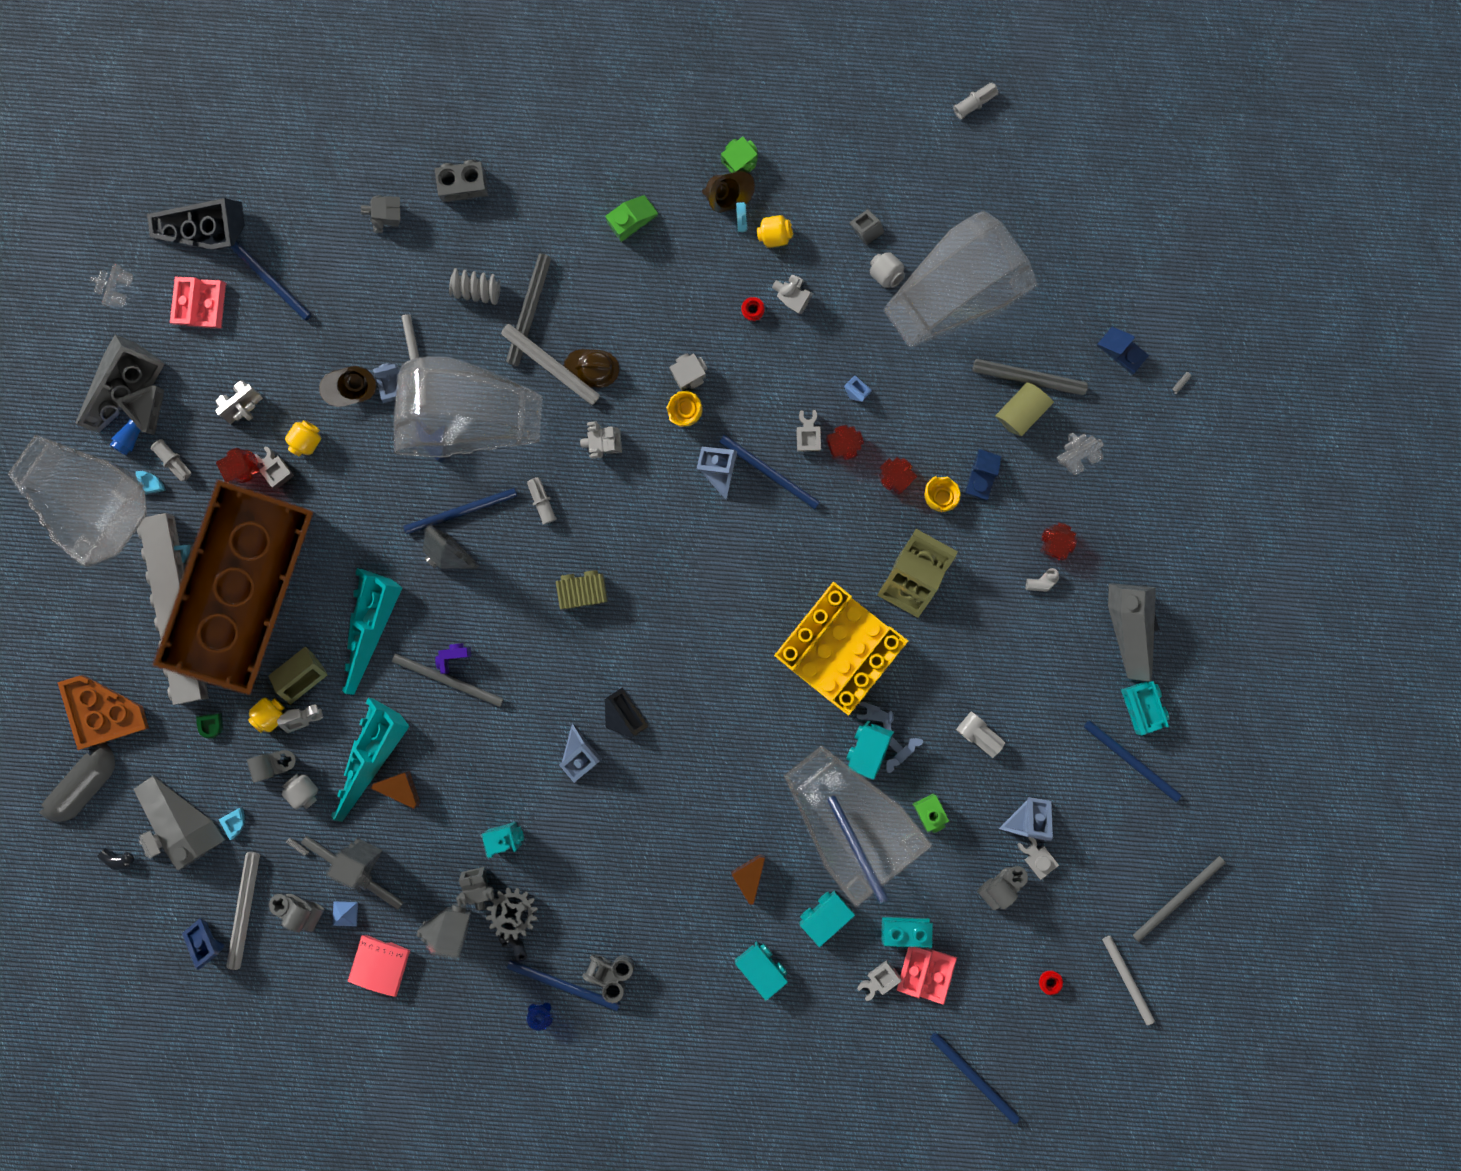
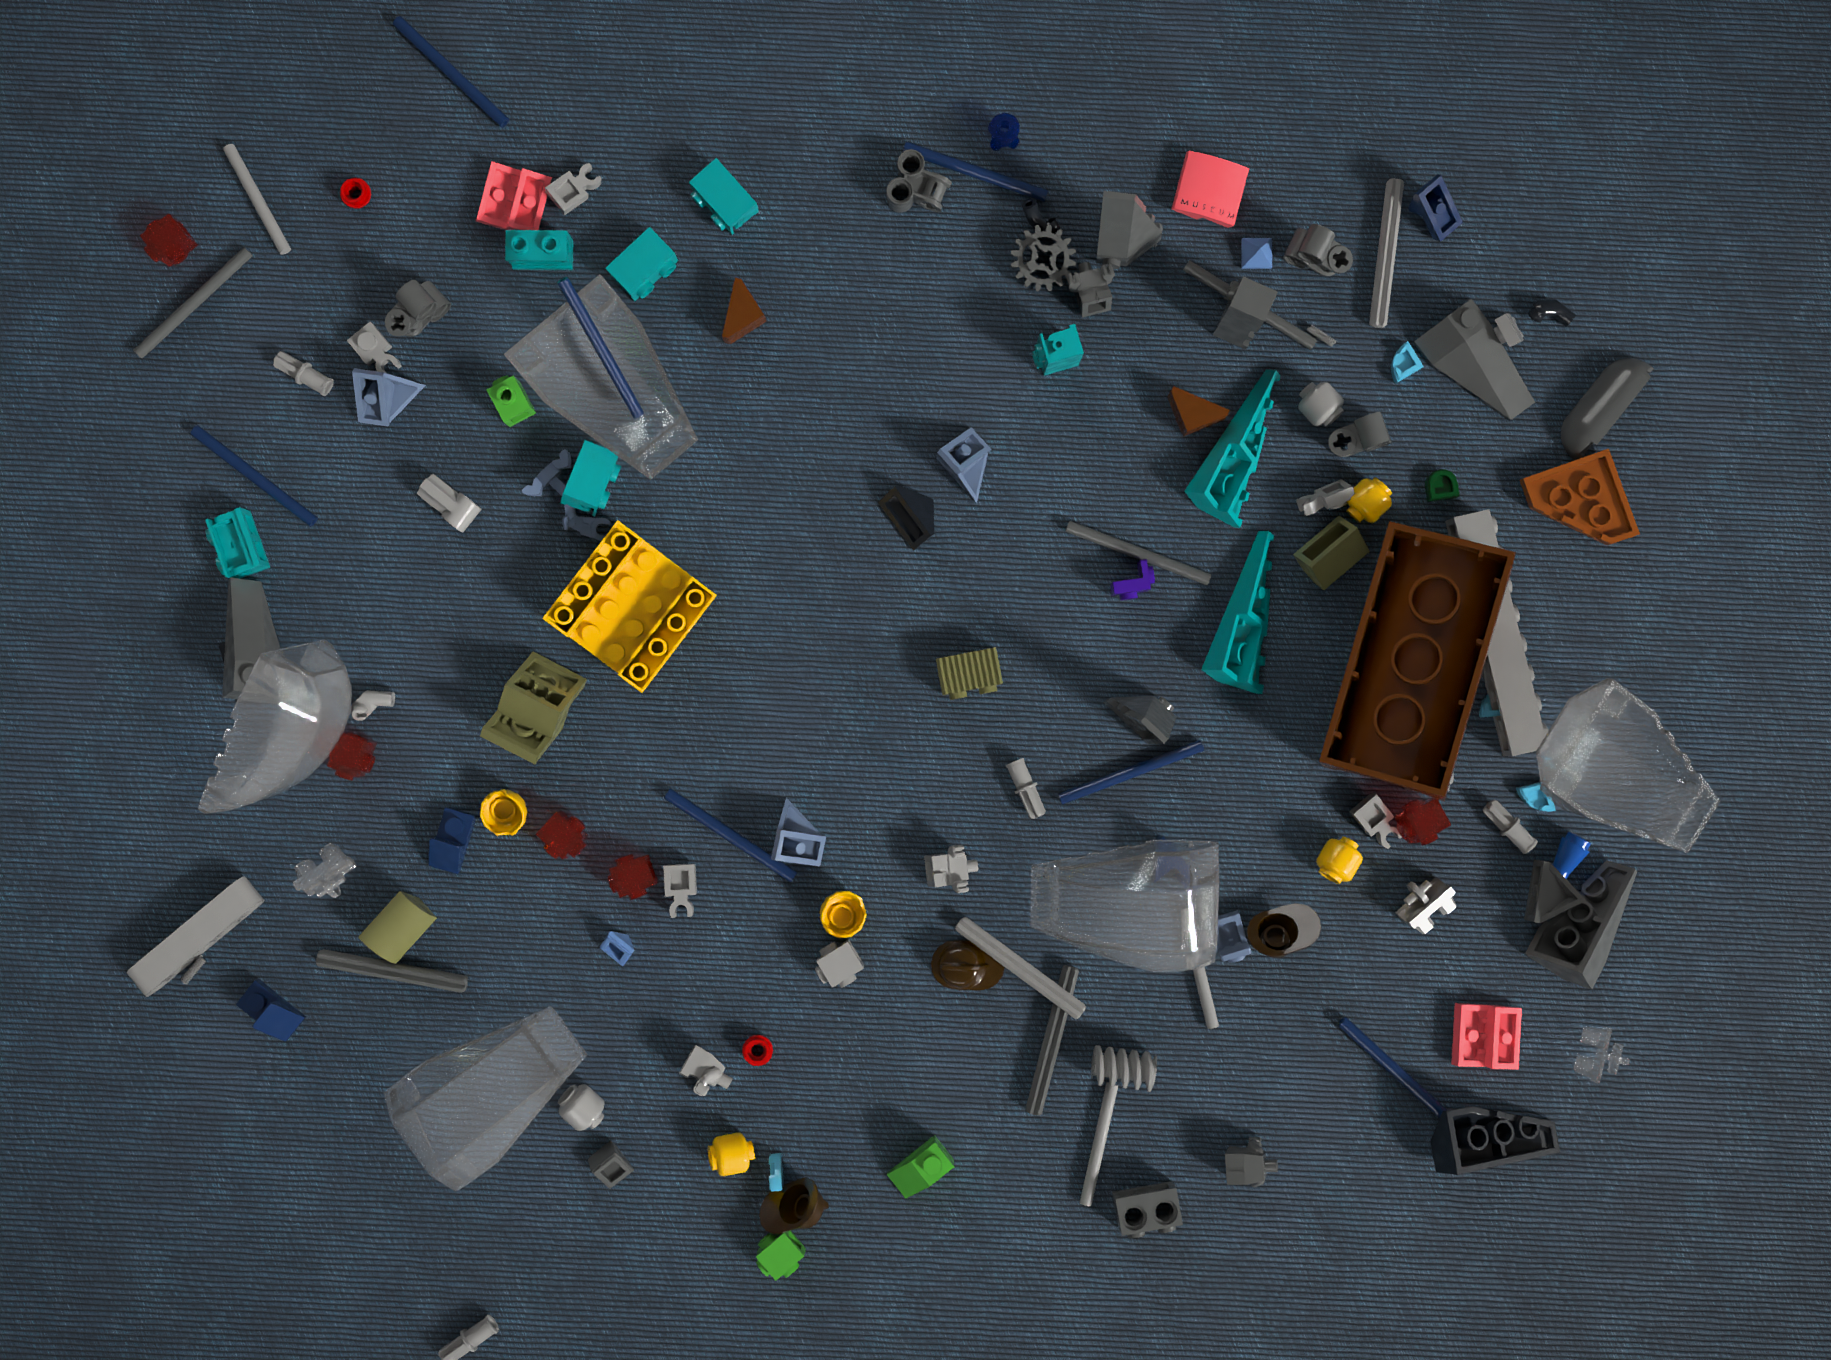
camera: 175 degrees right, 0 degrees up
(496, 230) = (1098, 1144): none -> light grey bar
(1093, 840) = (303, 373): none -> light grey axle
(1107, 563) = (282, 725): none -> clear windscreen
(1179, 407) = (195, 936): none -> light grey beam
(1197, 948) = (168, 241): none -> clear red brick

